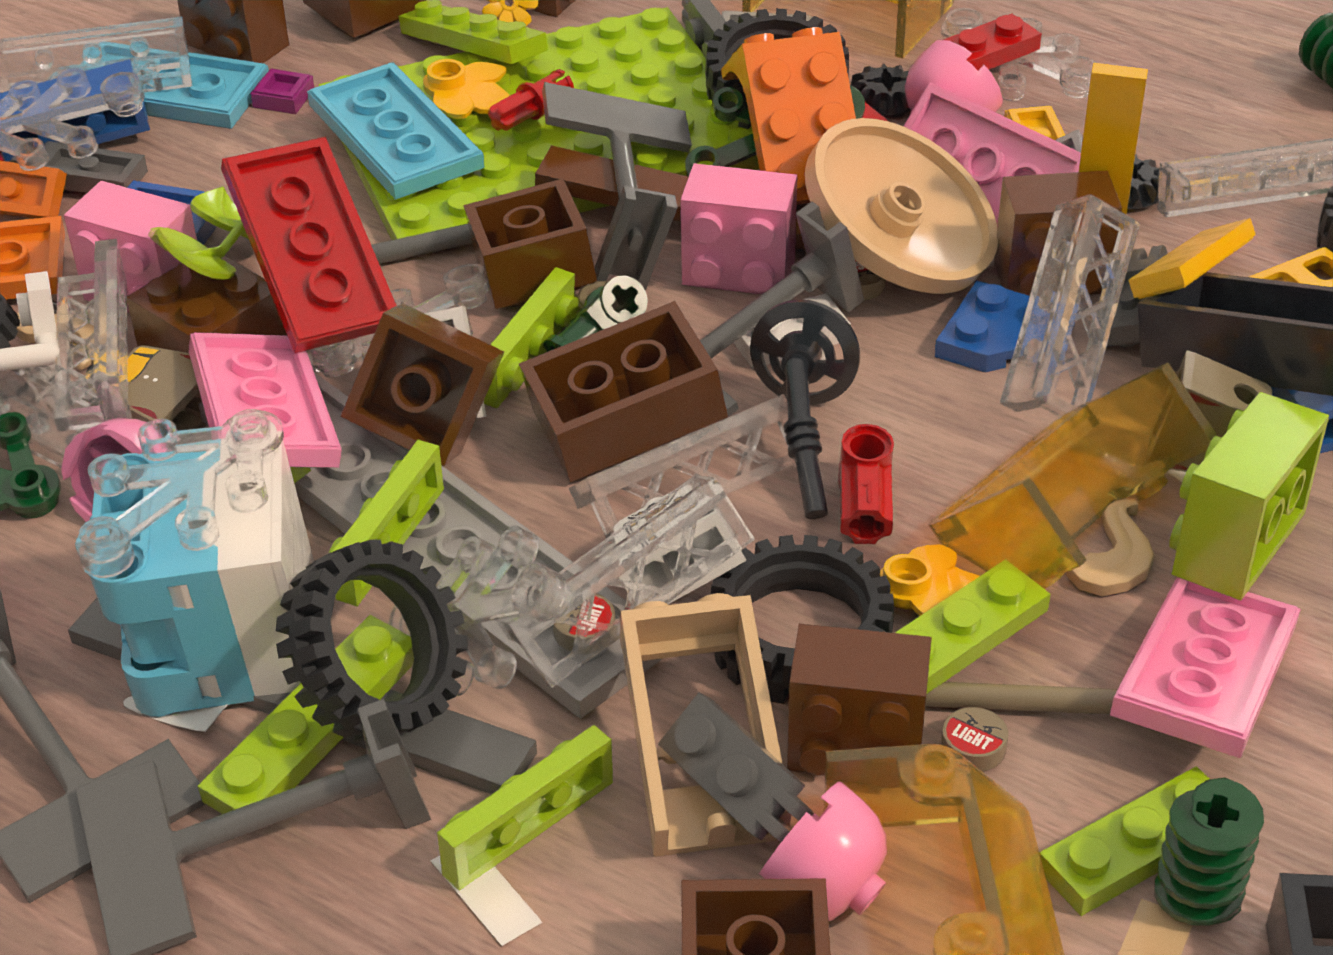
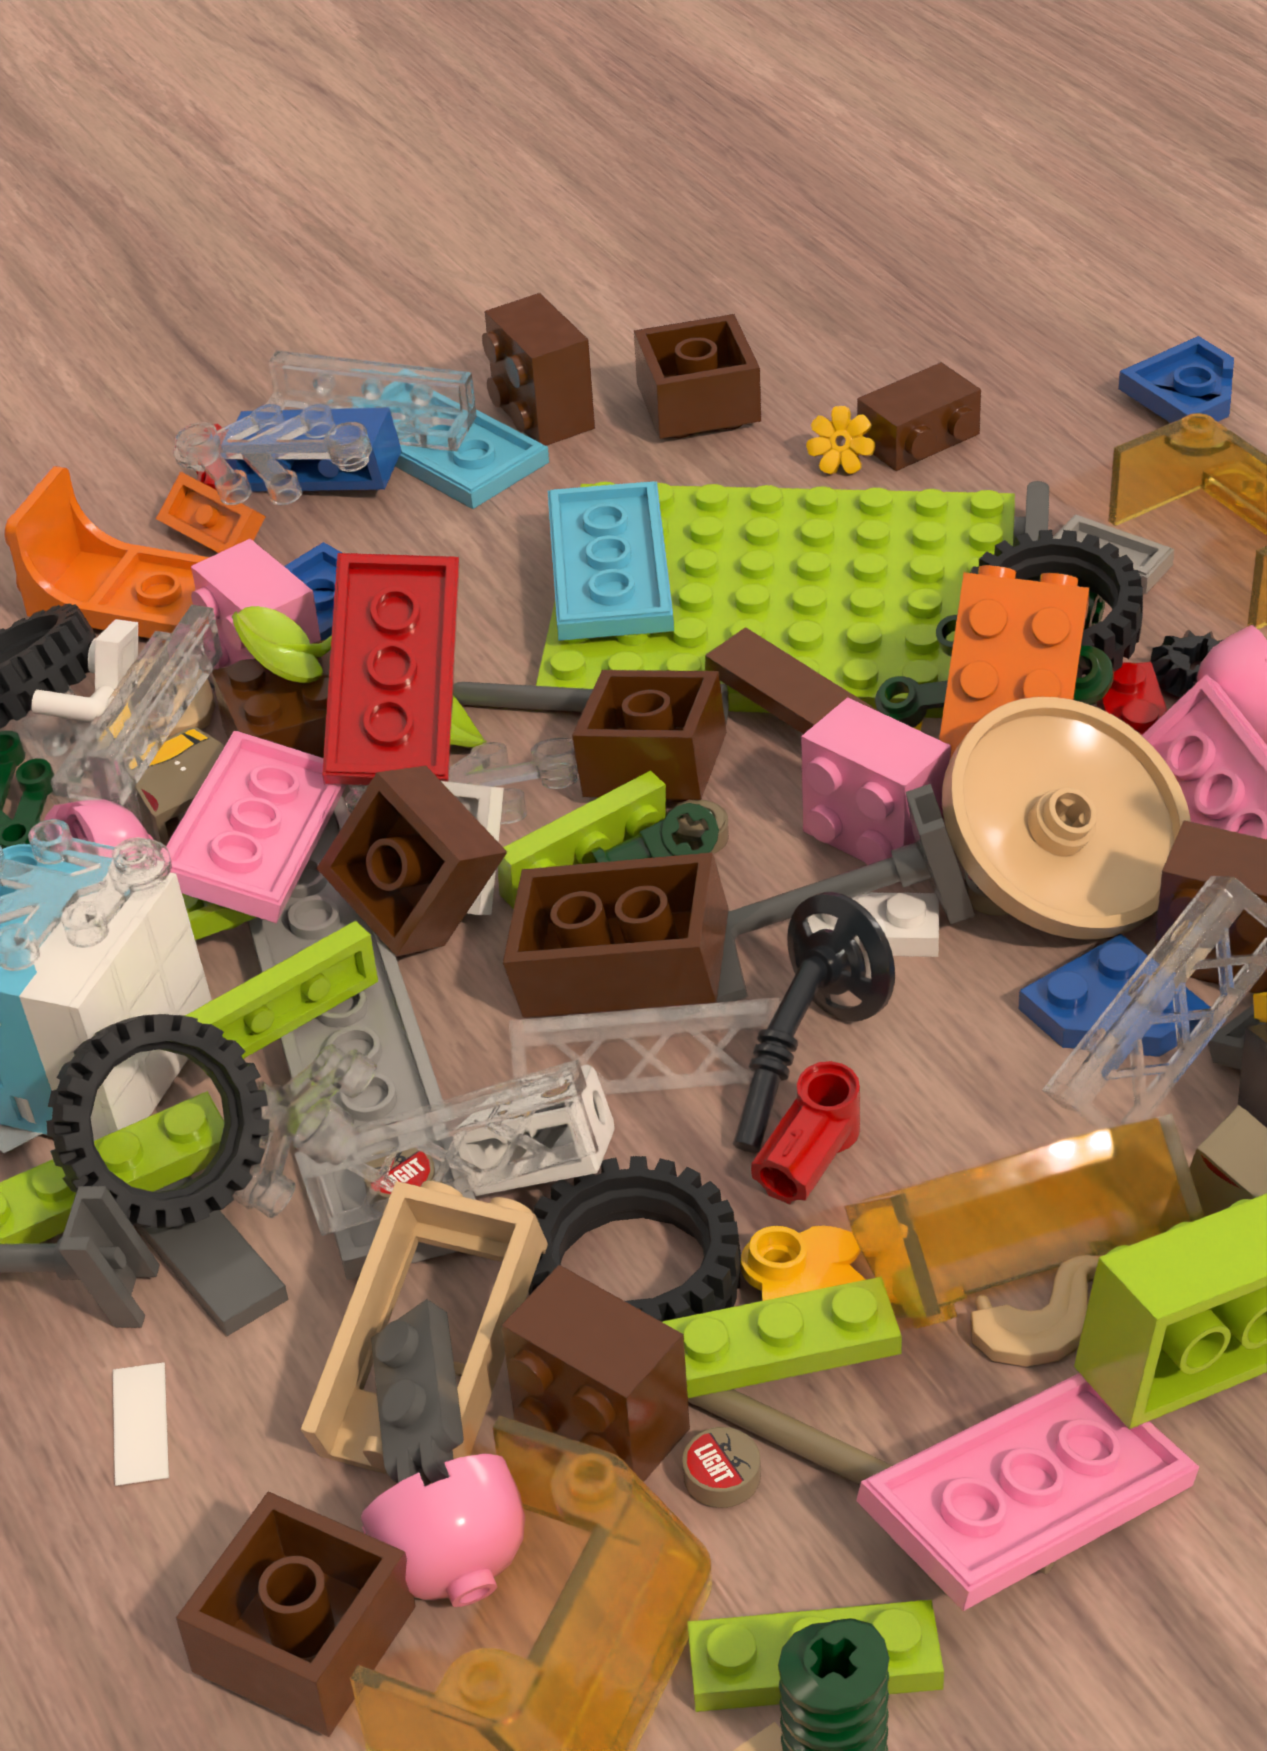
camera: 30 degrees right, 0 degrees up
(103, 165) = (303, 522): dark grey hinge -> none
(282, 91) = (543, 475): magenta tile -> none
(462, 88) = (712, 532): yellow plate -> none
(473, 32) = (771, 468): lime plate -> none
(524, 103) = (765, 567): red axle -> none
(525, 807) = (218, 1351): lime plate -> none
(641, 214) = (833, 618): dark grey piece -> none

